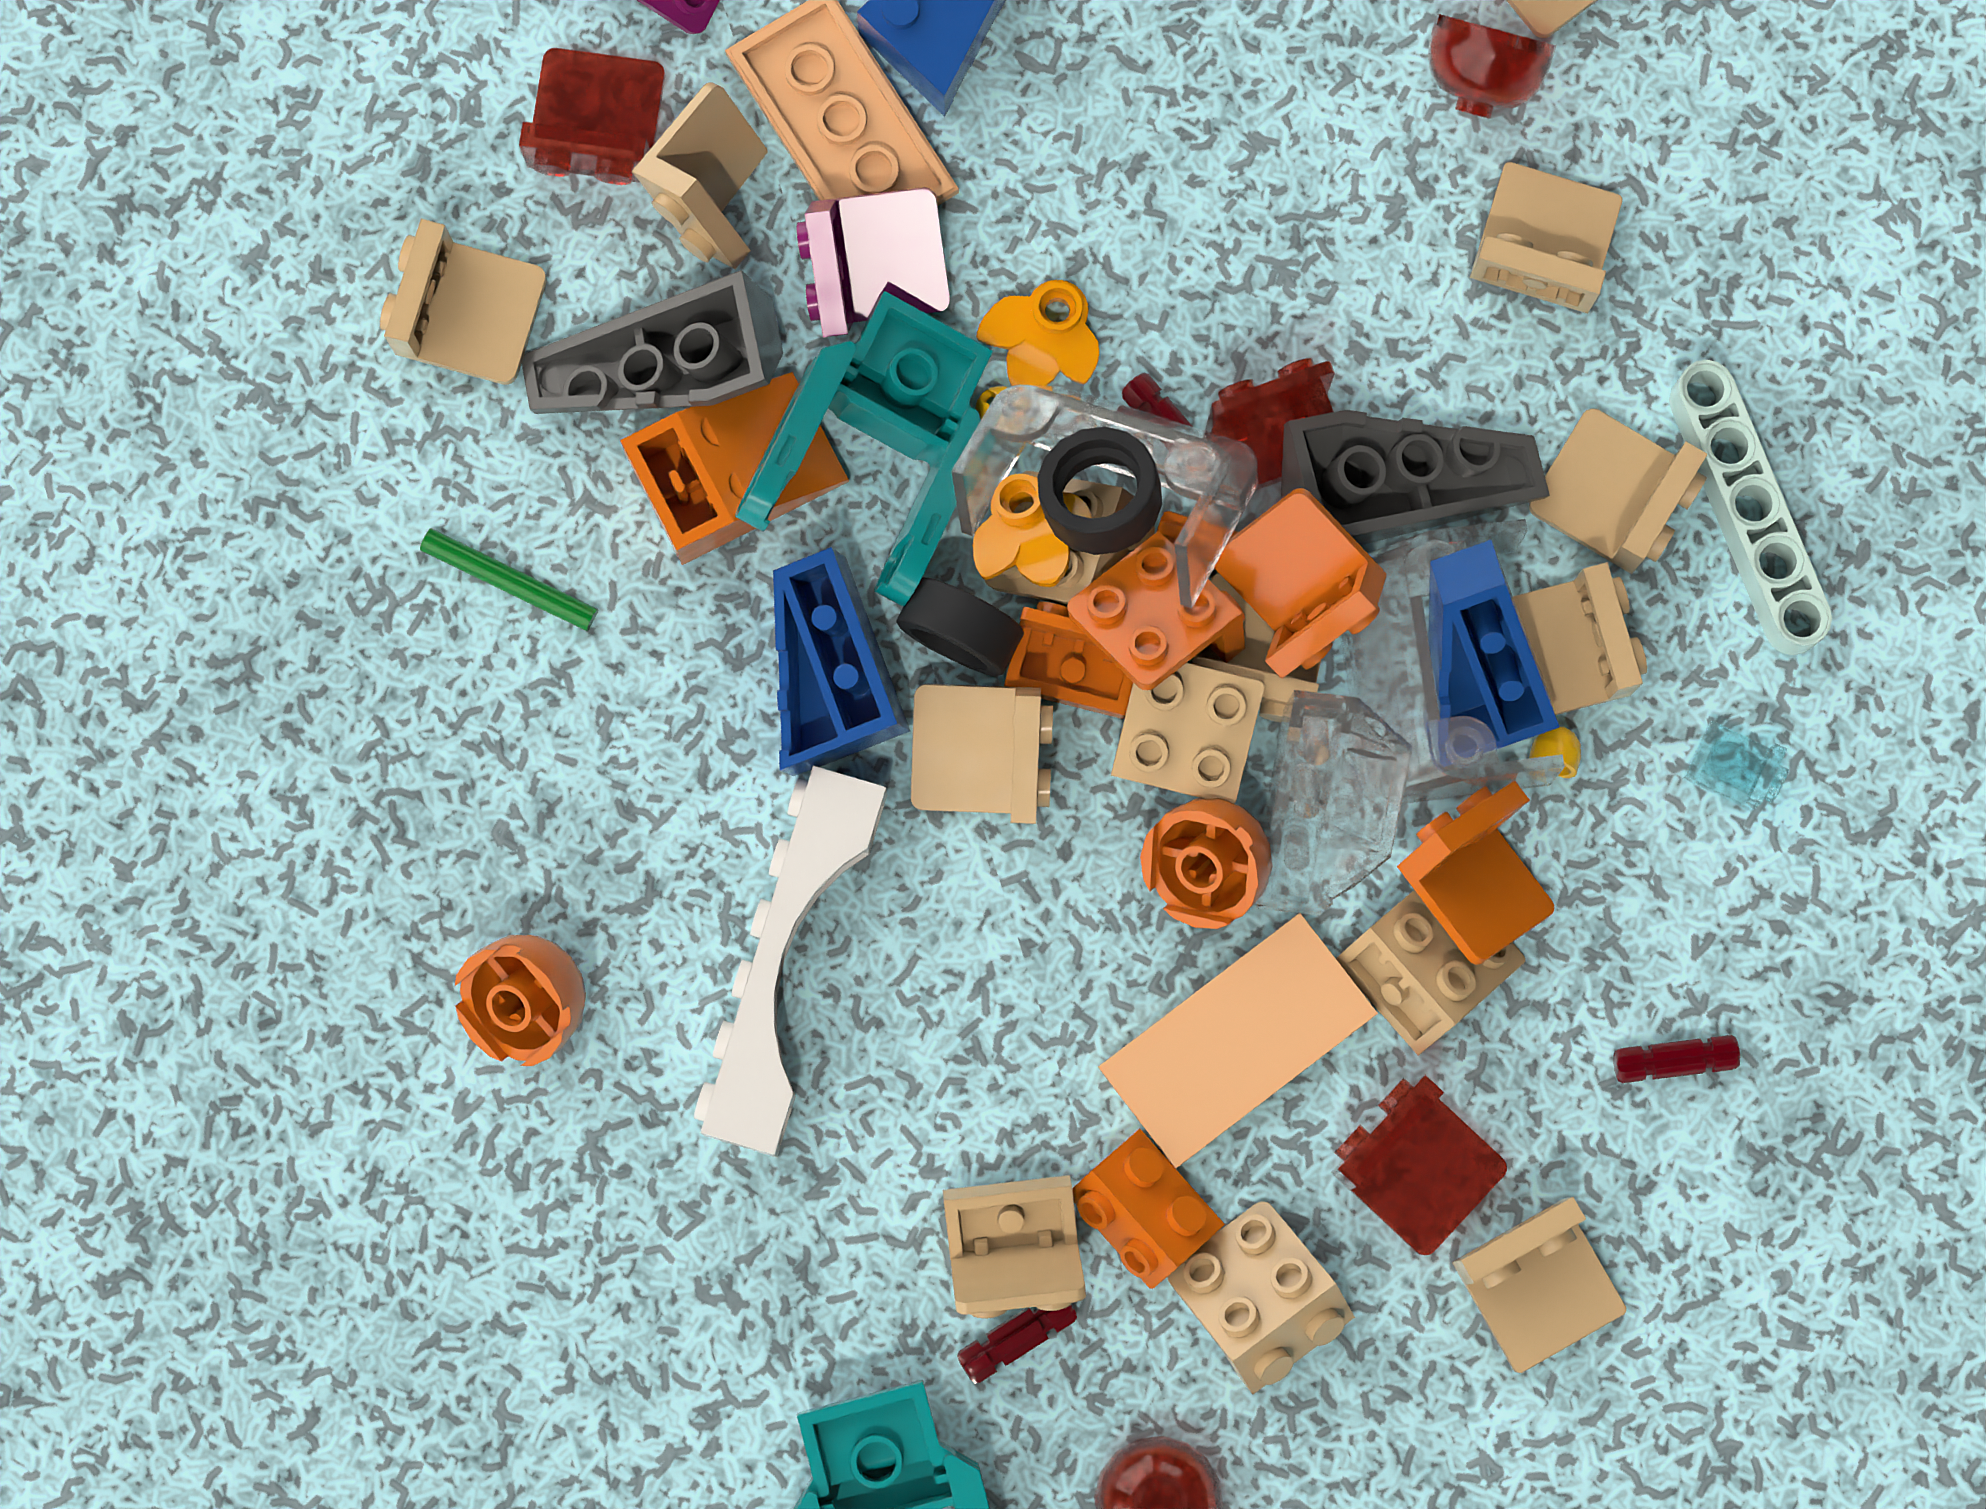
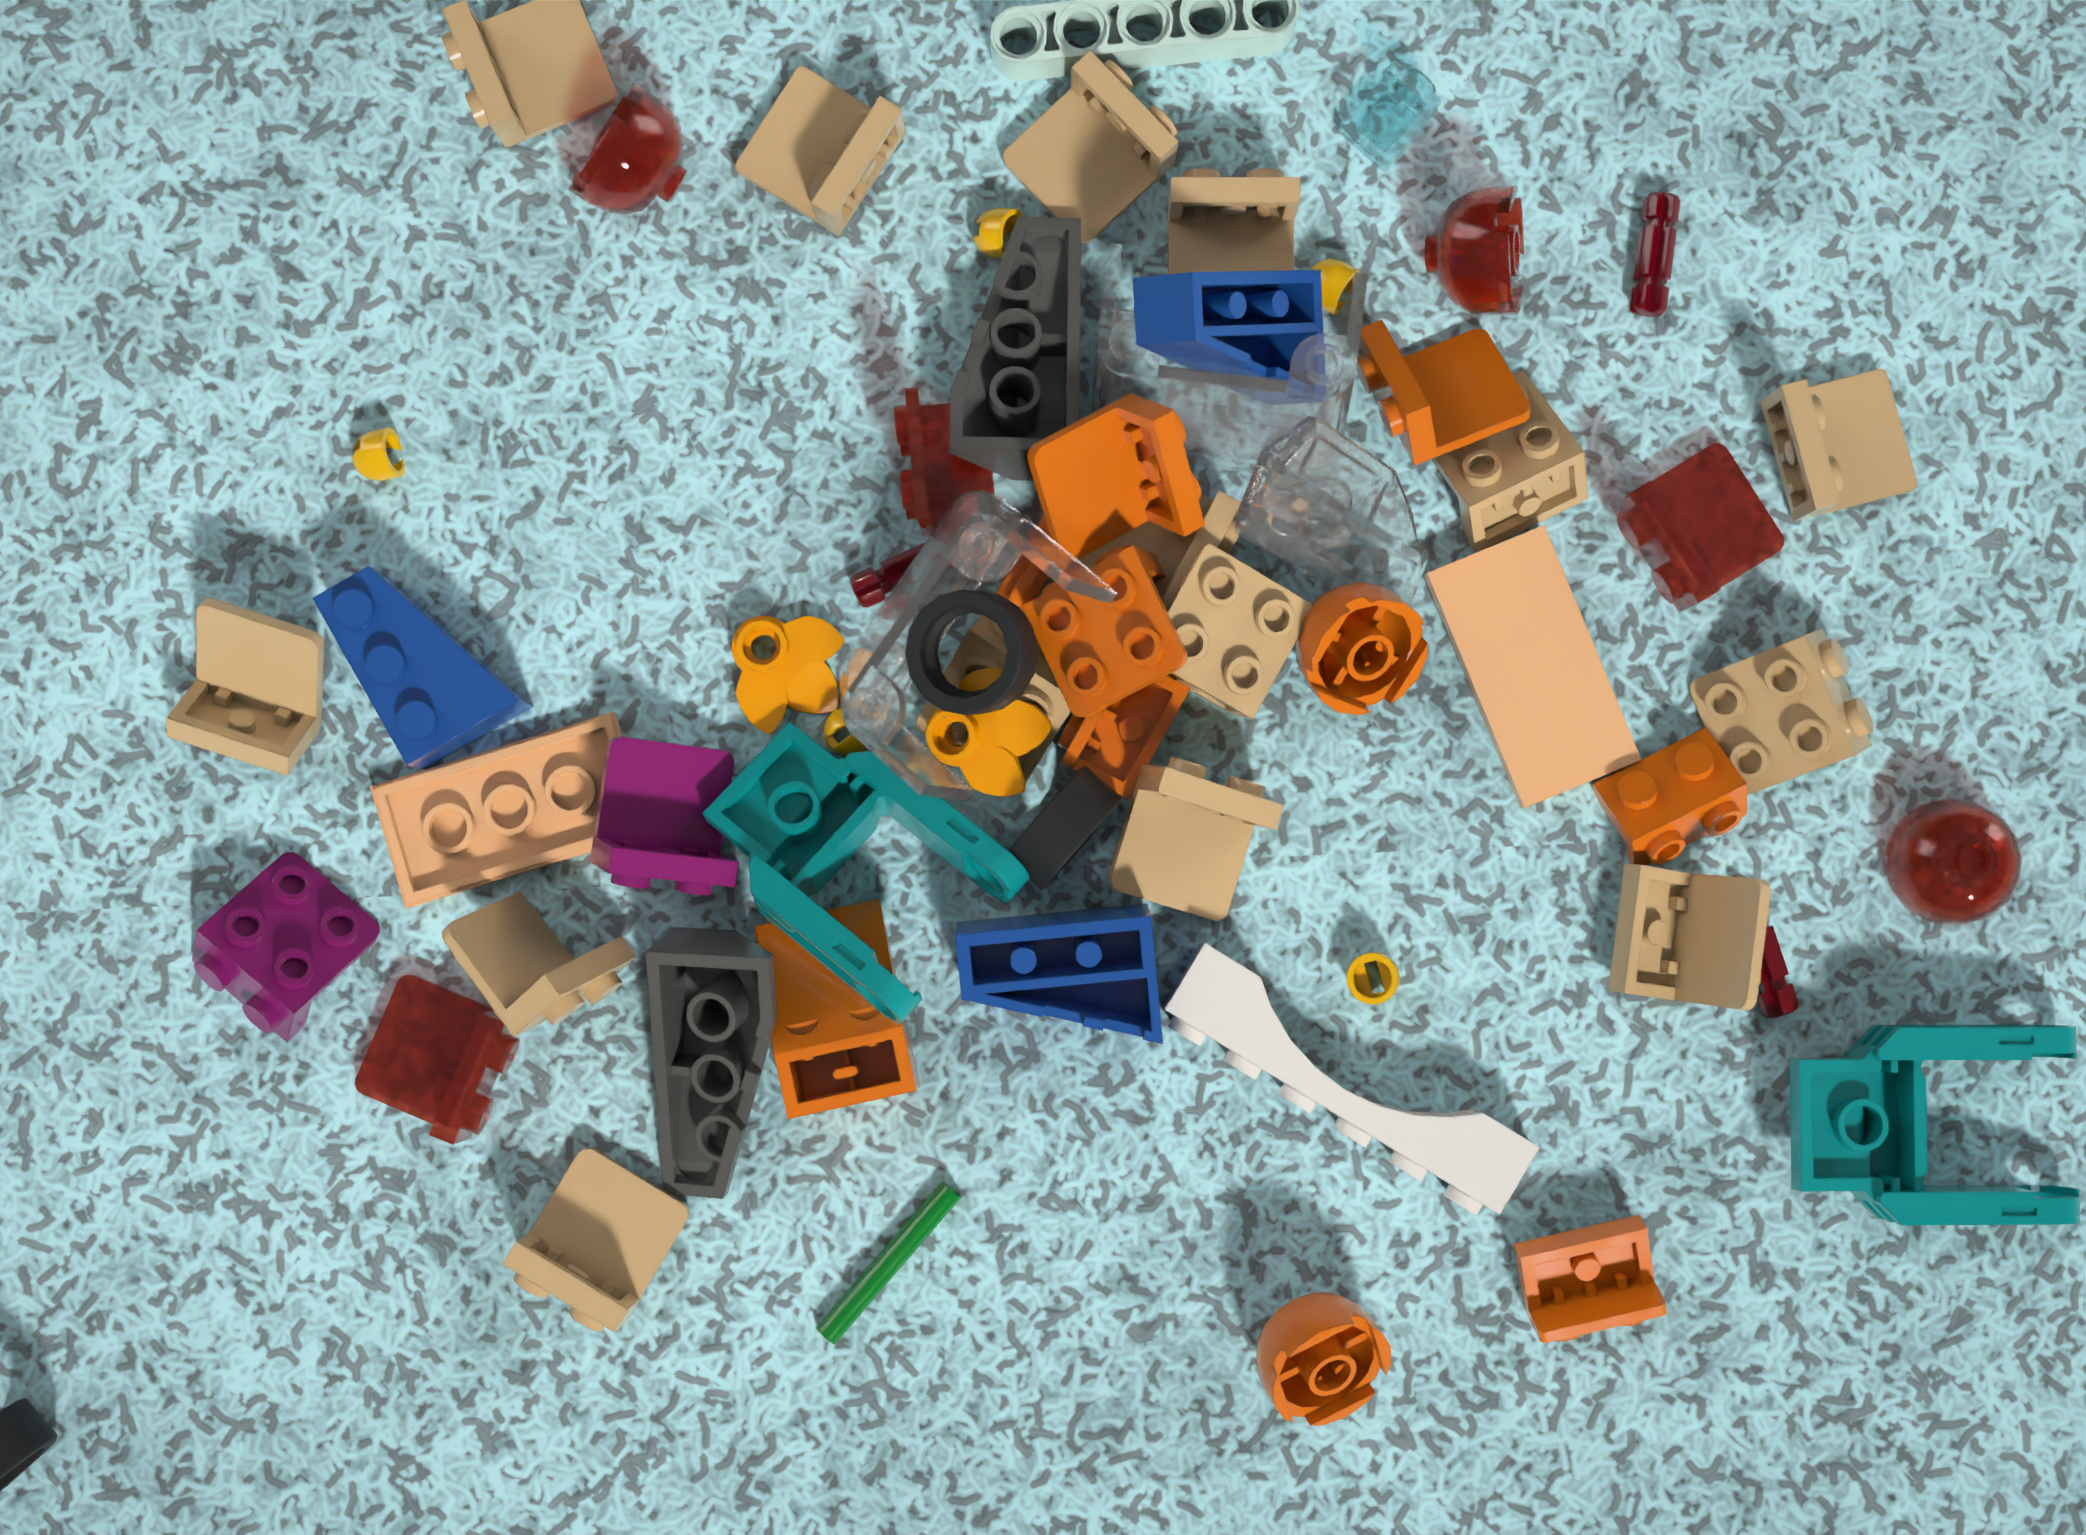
camera: 70 degrees left, 5 degrees up
(660, 1241) = (1588, 1279): none -> orange bracket
(889, 953) = (1360, 980): none -> yellow hinge
(1516, 413) = (991, 230): none -> yellow hinge
(1633, 876) = (1480, 251): none -> clear red cylinder

